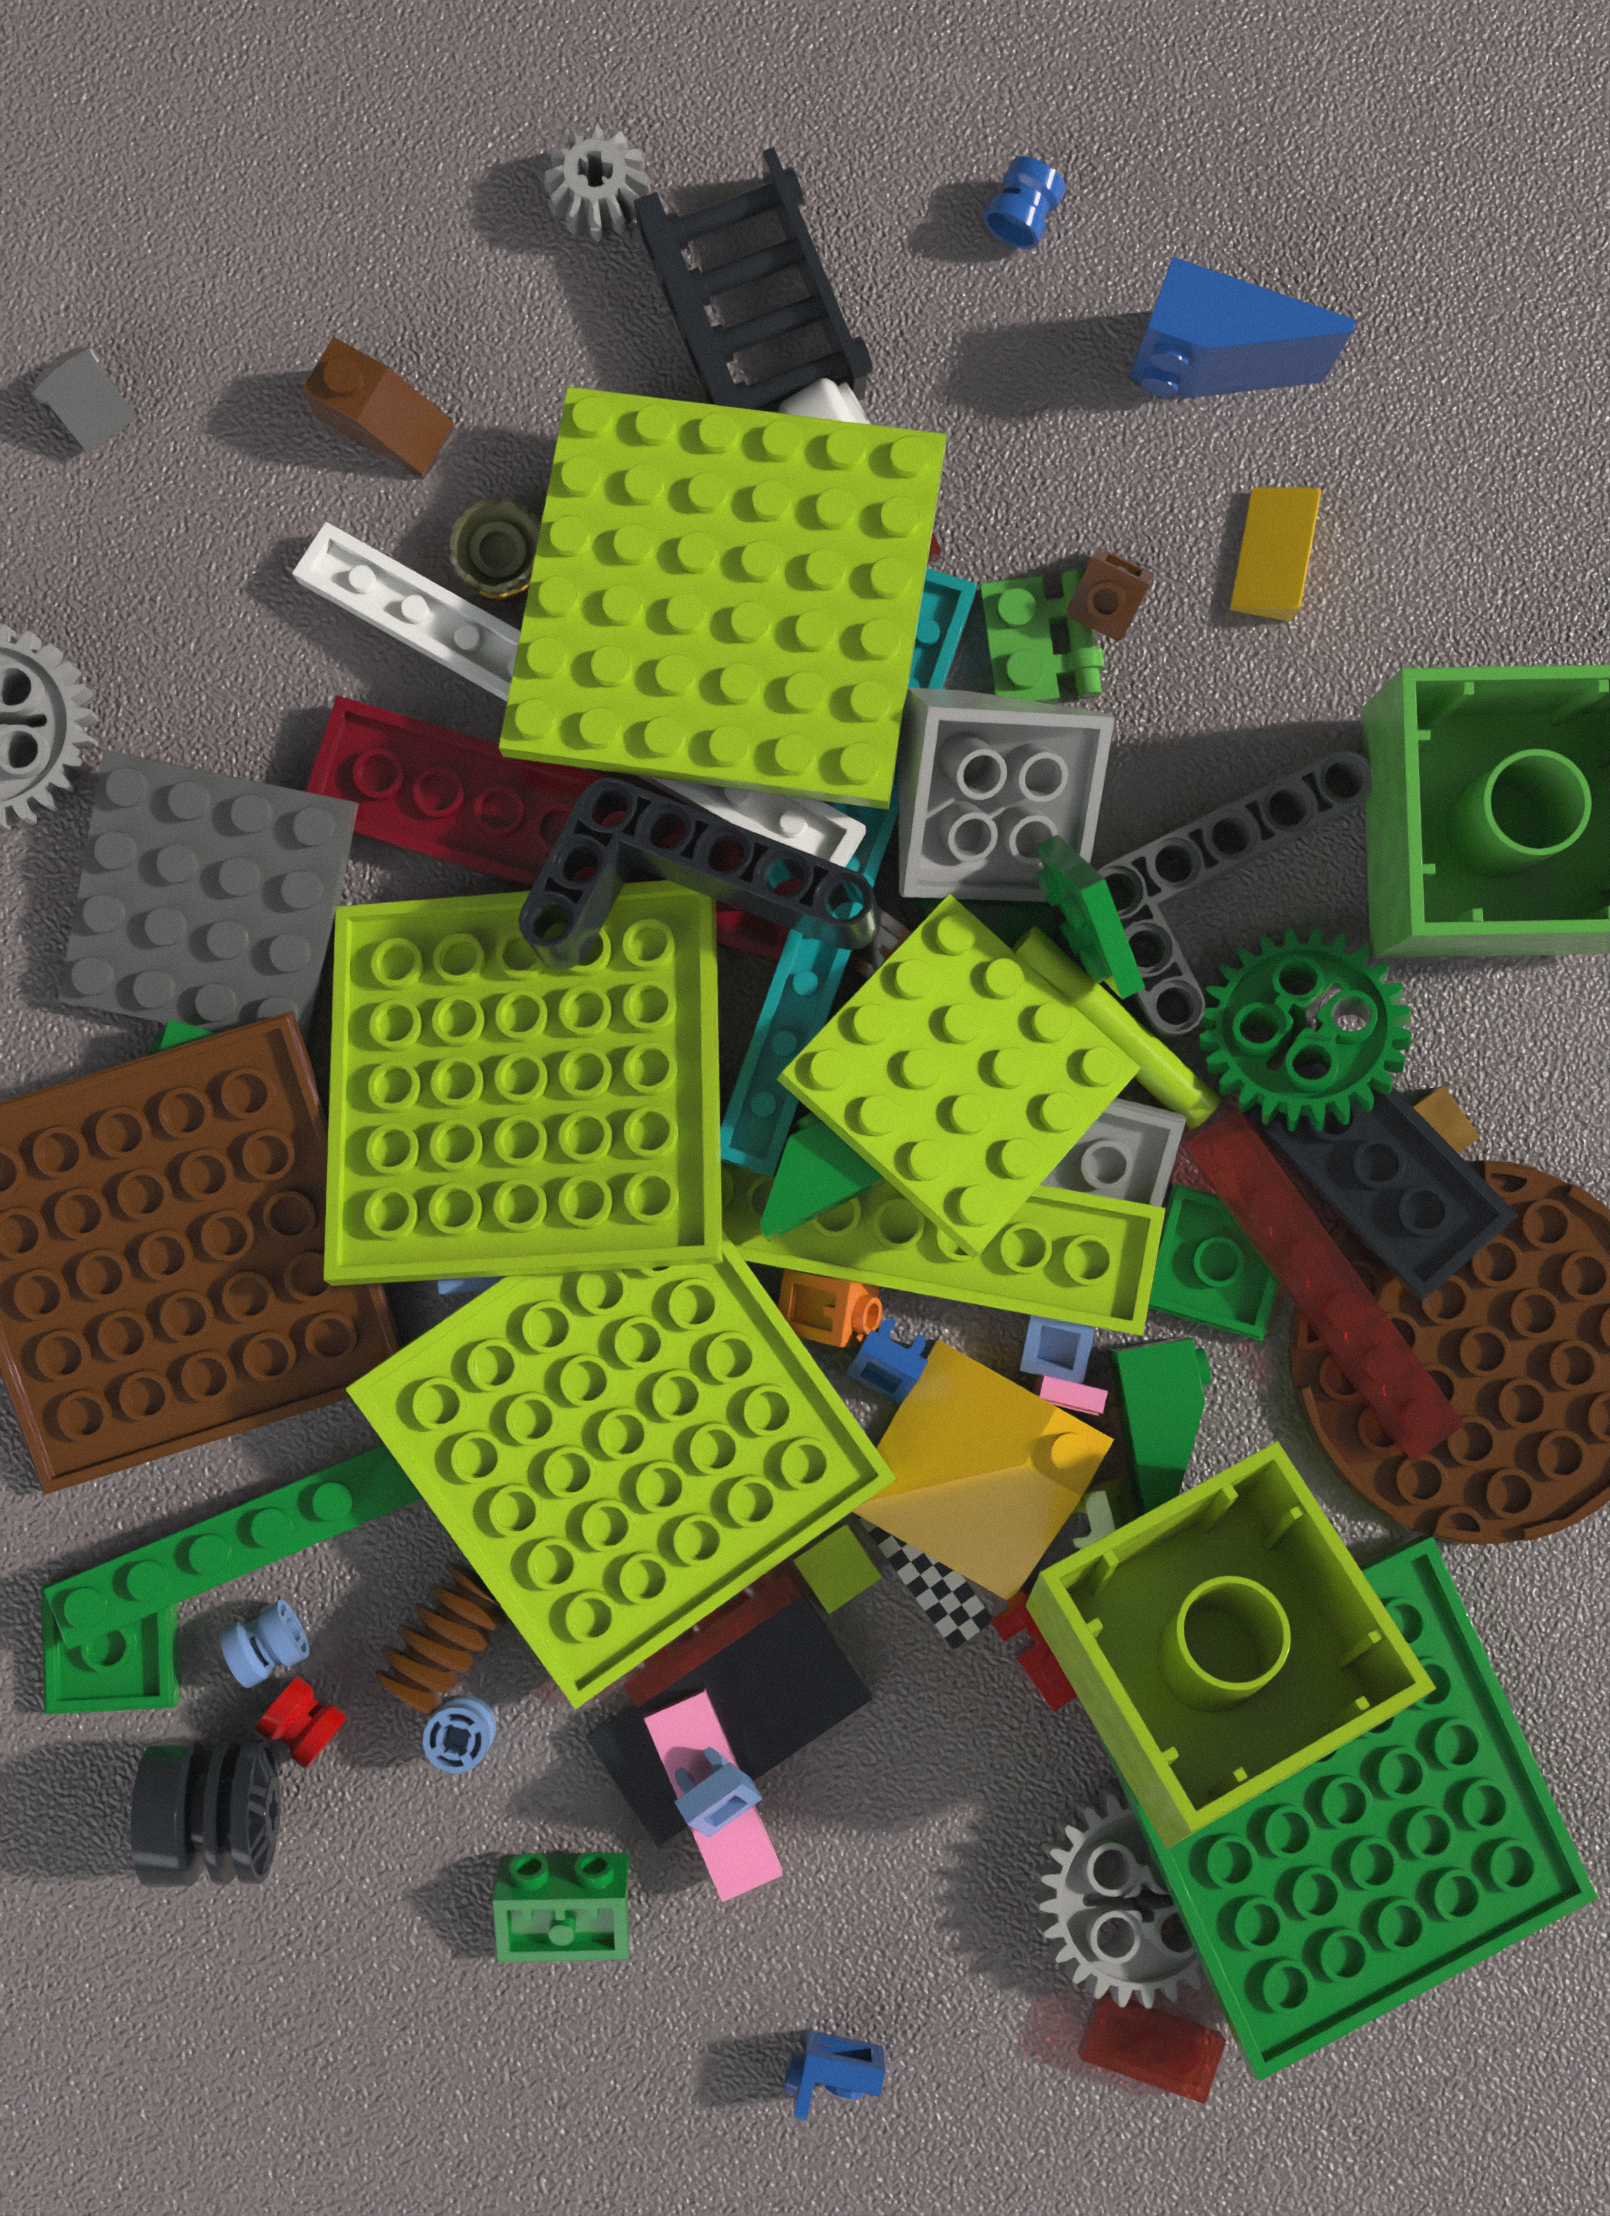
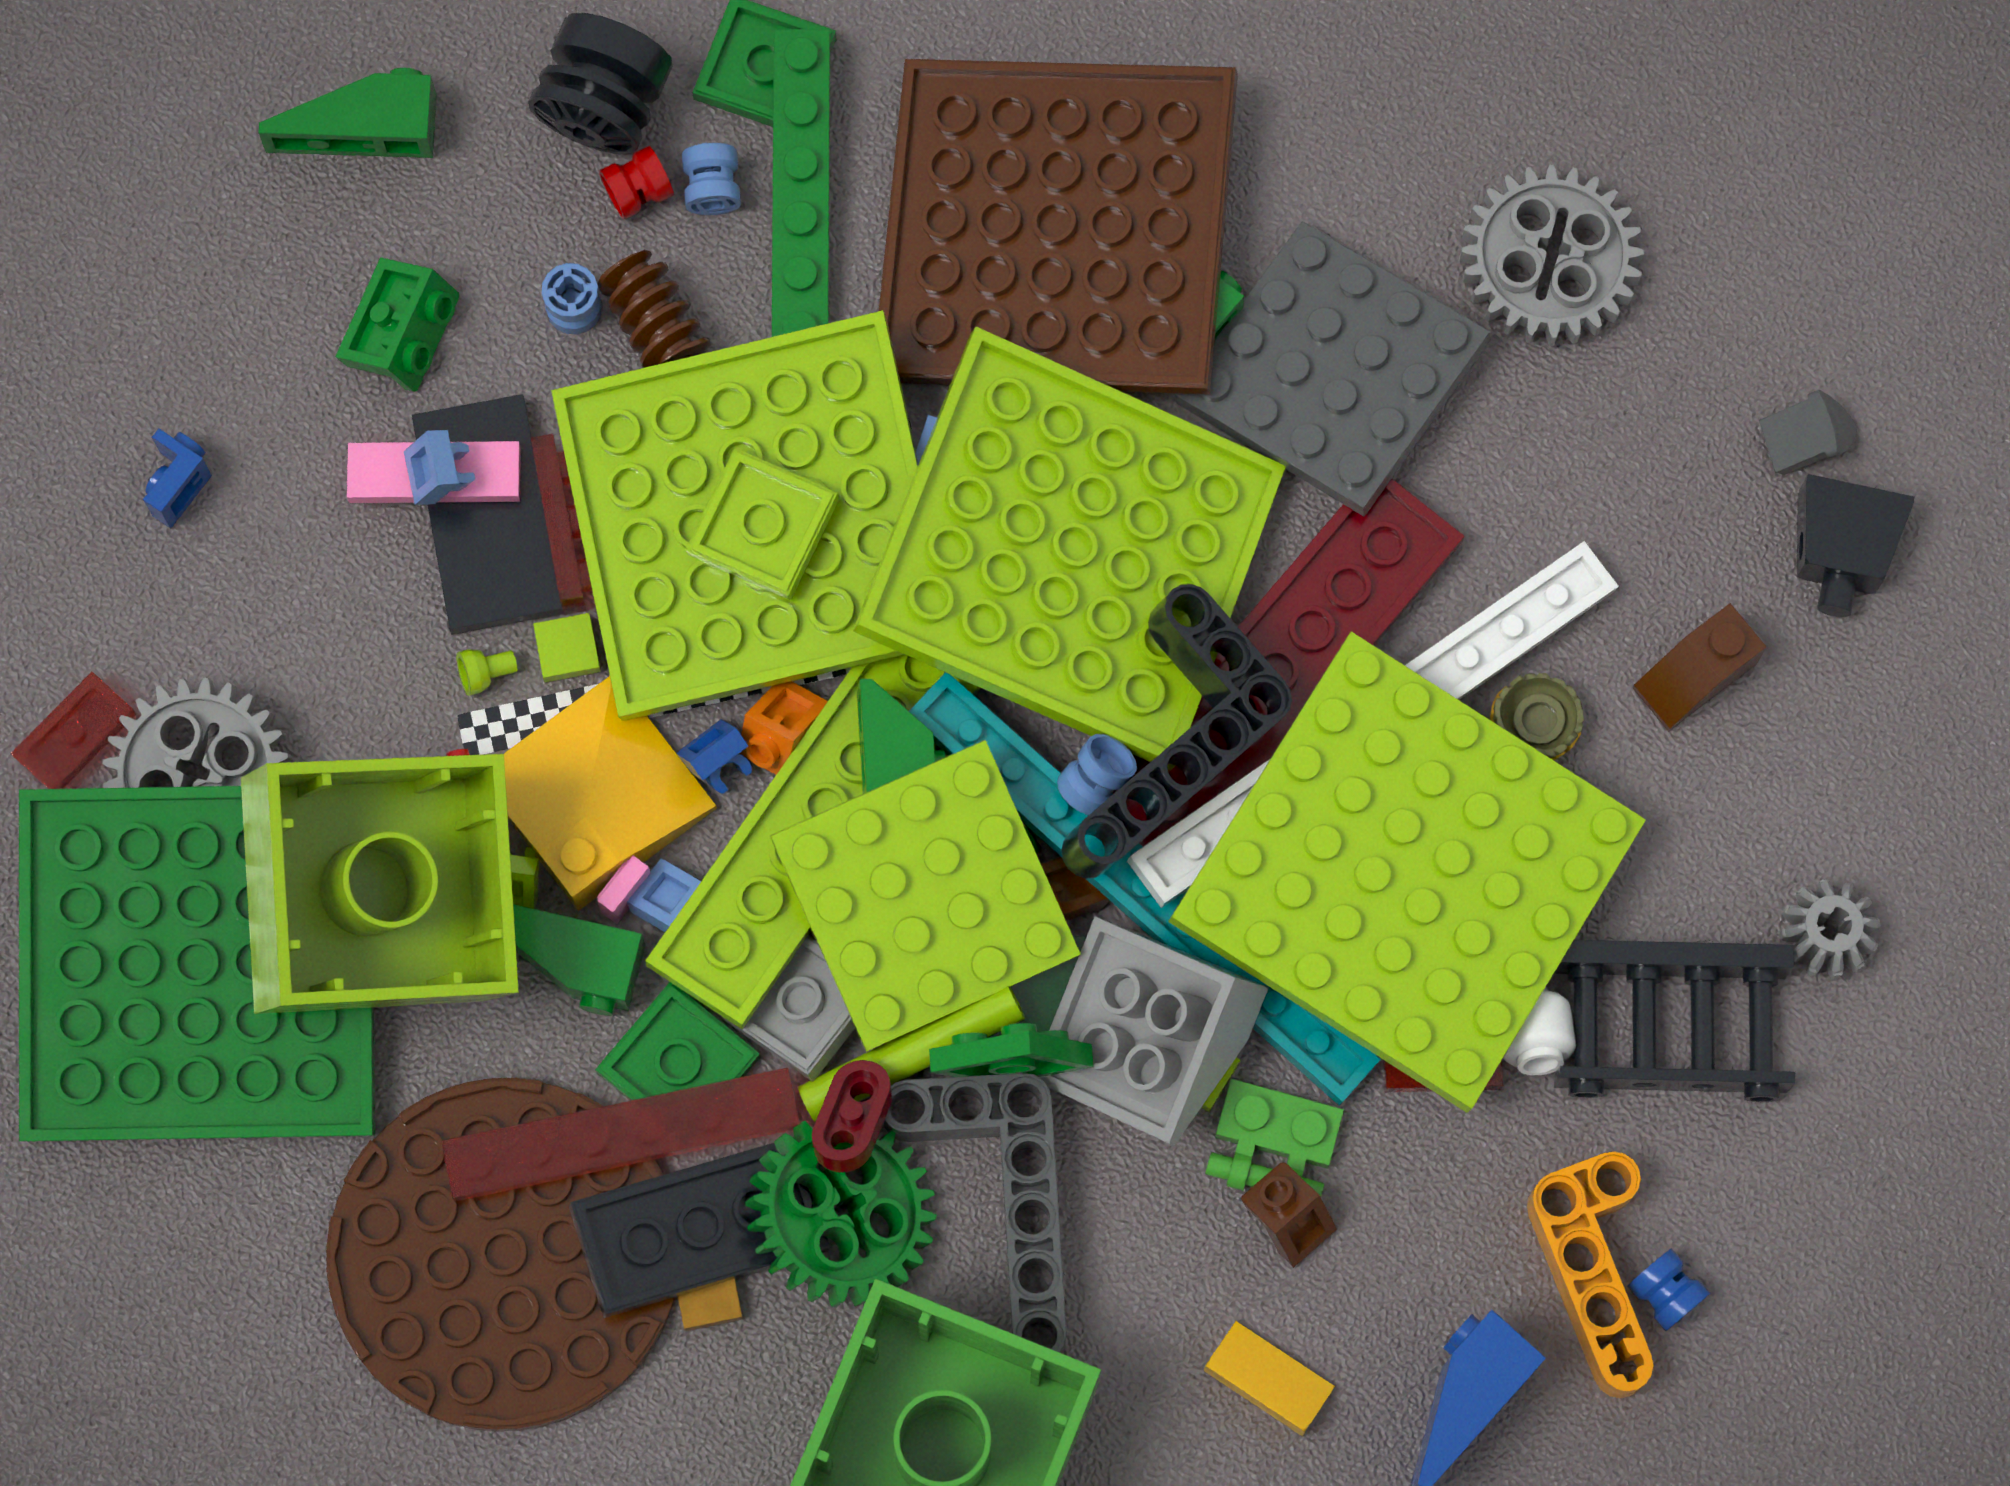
camera: 115 degrees right, 10 degrees down
(180, 315) = (1847, 538): none -> black torso
(347, 2055) = (365, 118): none -> green slope
(634, 1416) = (762, 523): none -> lime tile
(757, 951) = (1101, 769): none -> medium blue wheel
(901, 1648) = (477, 670): none -> lime piece
(1040, 273) = (1602, 1280): none -> light orange beam
(1220, 1051) = (849, 1120): none -> dark red plate

